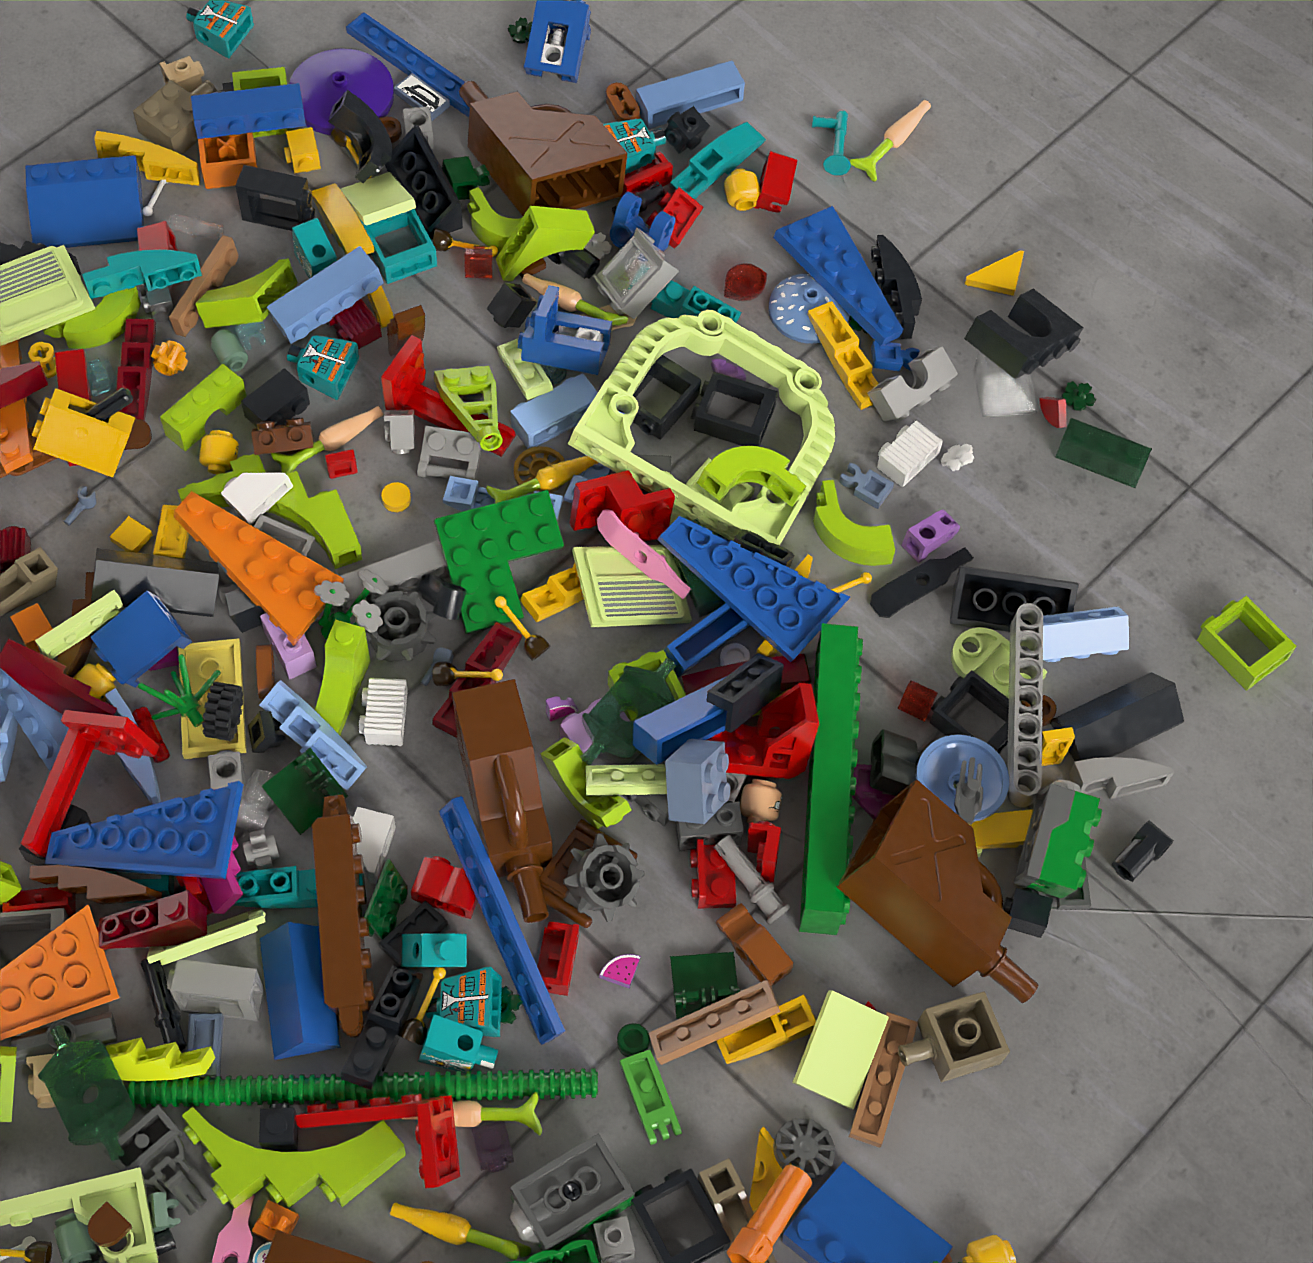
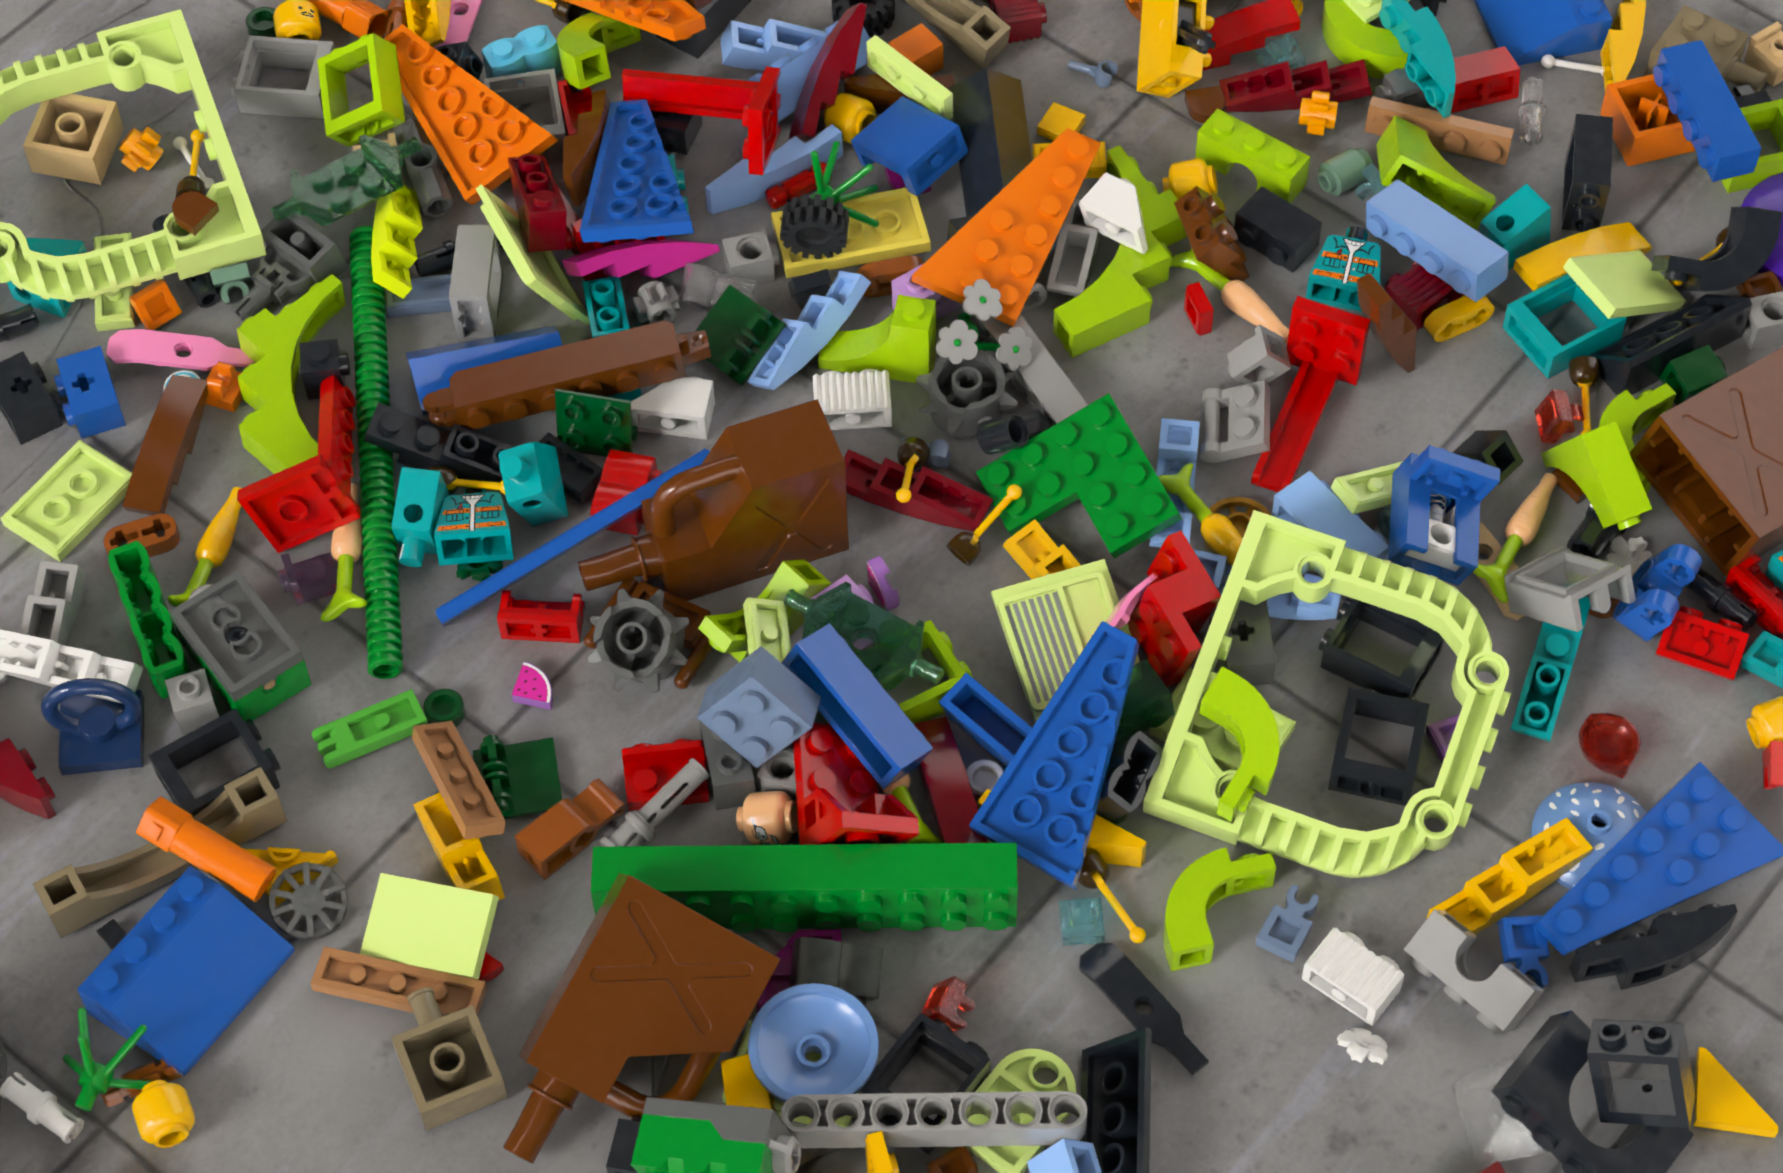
camera: 90 degrees right, 5 degrees down
(302, 150) = (1689, 199): yellow brick -> none
(396, 497) = (1165, 377): yellow tile -> none
(472, 381) = (1352, 419): lime plate -> none
(747, 689) = (903, 761): black panel -> none
(765, 841) = (689, 819): red bracket -> none
(855, 611) = (1081, 921): none -> clear light blue tile
(929, 535) = (1220, 1011): medium lavender leg -> none
(970, 794) = (782, 1045): dark grey piece -> none
(1017, 296) = (1639, 1099): none -> black window

